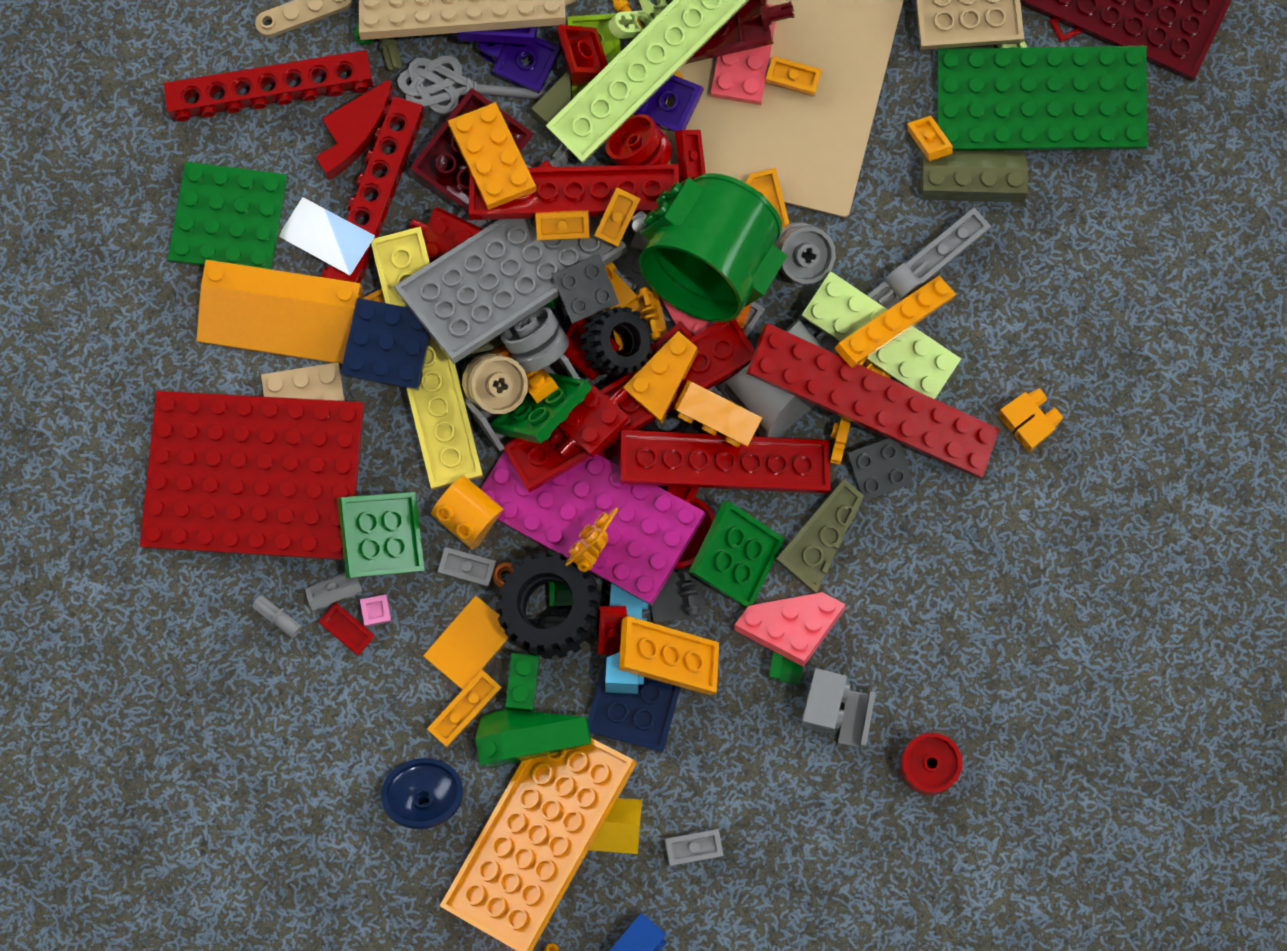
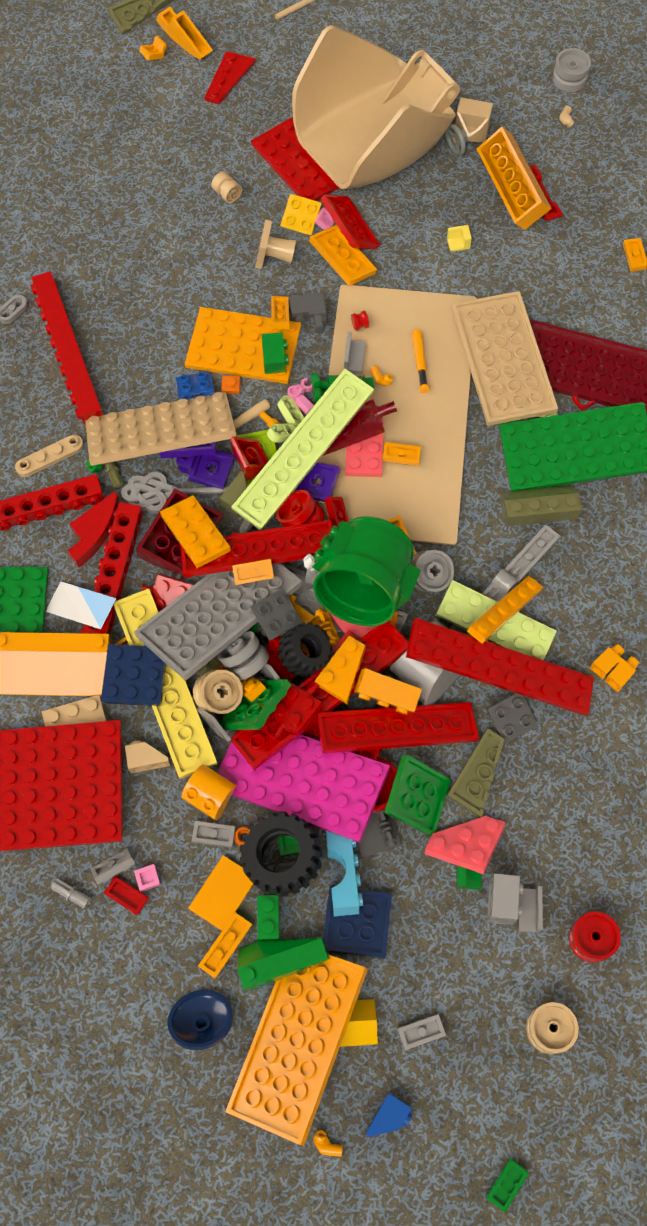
camera: 10 degrees left, 10 degrees down
(380, 534) = (144, 818): plate -> none
(387, 454) = (144, 757): none -> tan slope
(592, 541) = (308, 799): light orange hinge -> none
(610, 629) = (331, 866): red plate -> none
(617, 217) = (292, 559): light orange plate -> none
(669, 655) = (379, 880): light orange plate -> none
(840, 433) = (478, 696): light orange plate -> none
(844, 877) = (540, 1034): none -> tan wheel
(930, 138) = (505, 483): light orange plate -> none

